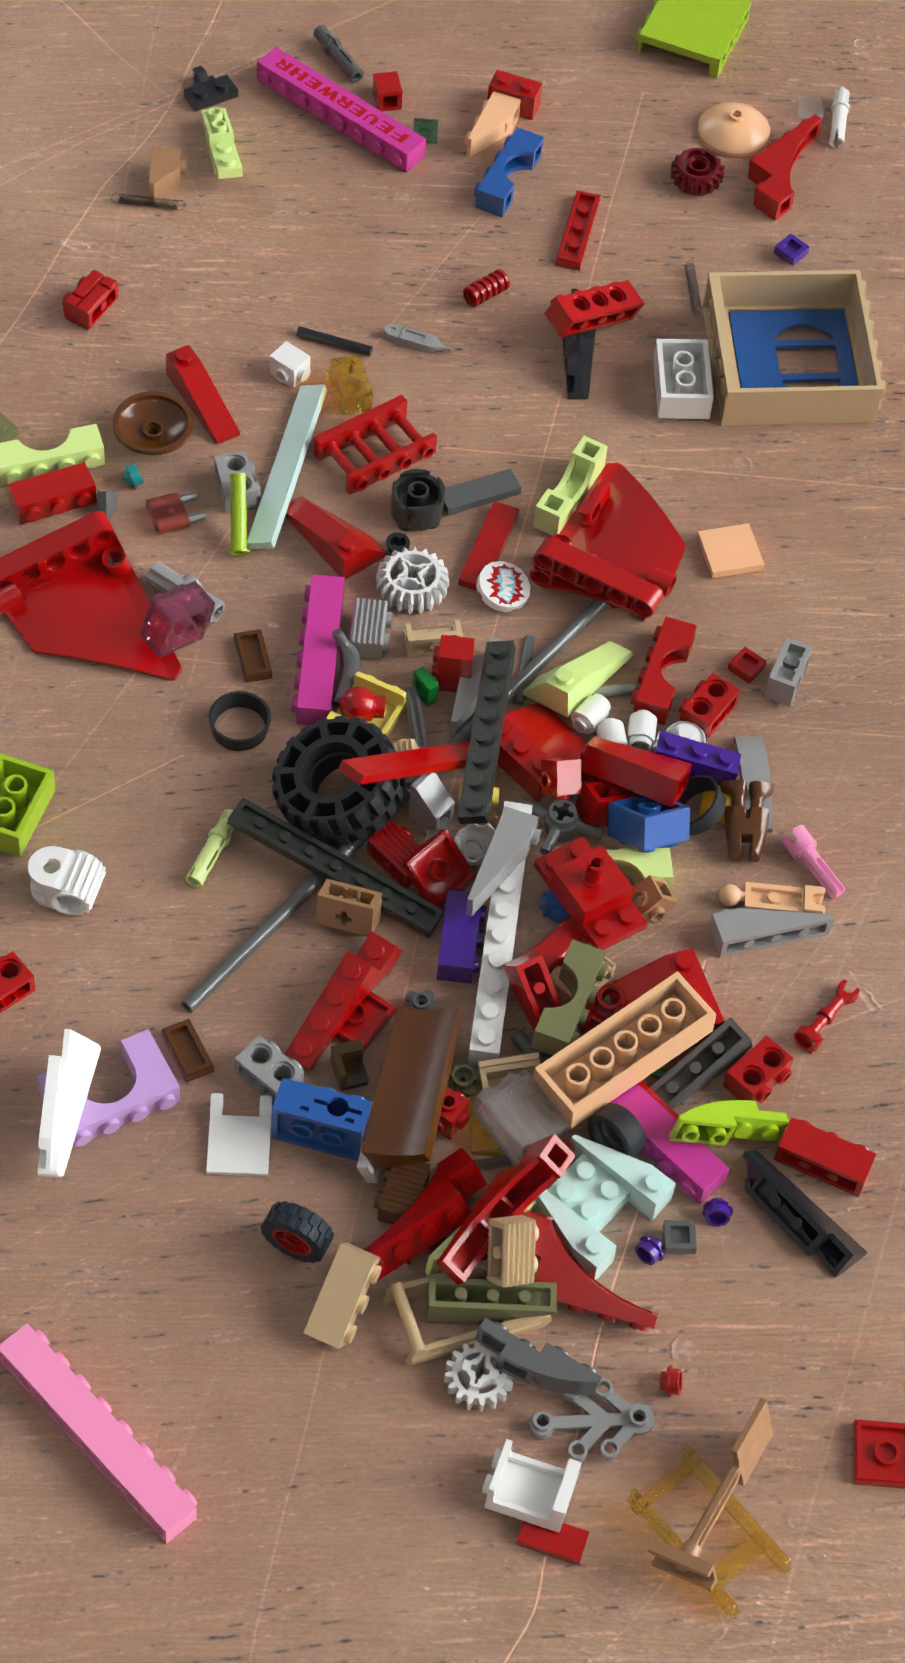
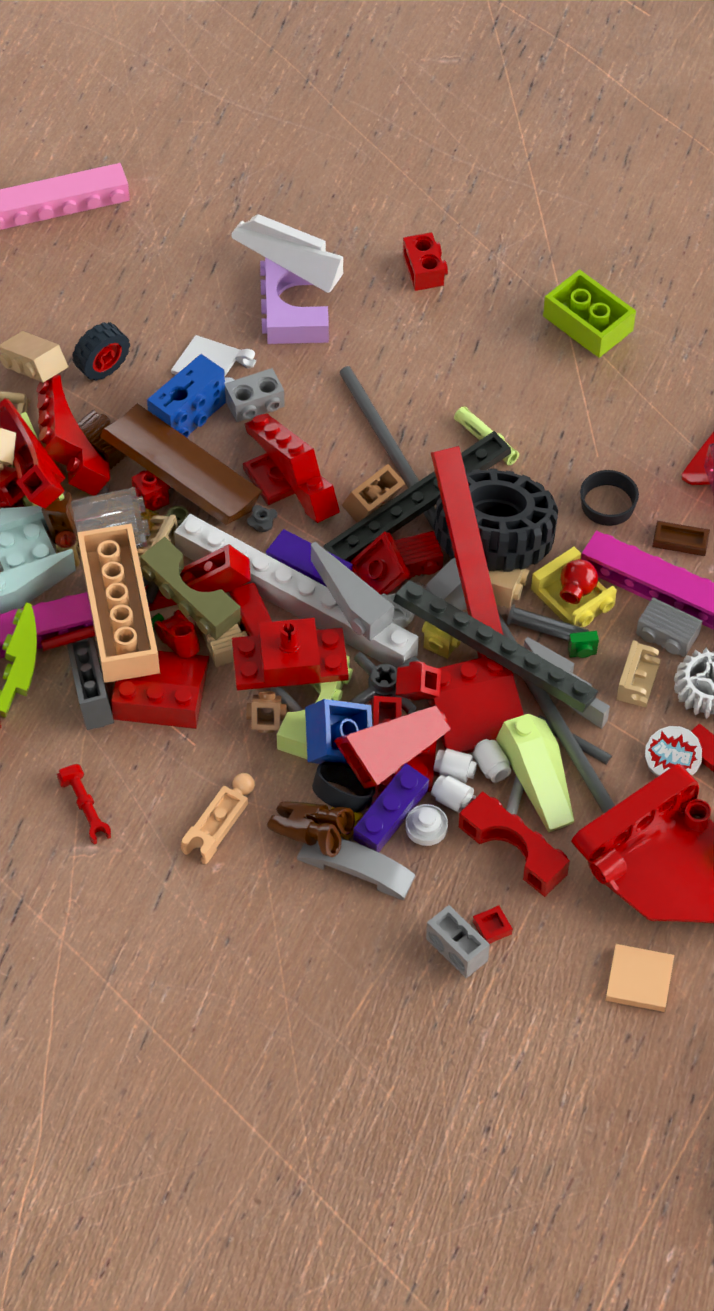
camera: 120 degrees right, 0 degrees up
(65, 887) = (498, 331): white piece -> none
(187, 1050) = (306, 359): reddish brown tile -> none
(349, 664) = (632, 598): dark grey piece -> none
(349, 1065) = (232, 446): dark brown panel -> none
(452, 661) = (592, 660): red brick -> none
(624, 1123) = (58, 581): black tyre -> none
(710, 704) = (450, 862): red brick -> none
(753, 1068) = (61, 720): red brick -> none
(755, 929) = (198, 782): light grey slope -> none
(805, 849) = (262, 864): bright pink piece -> none

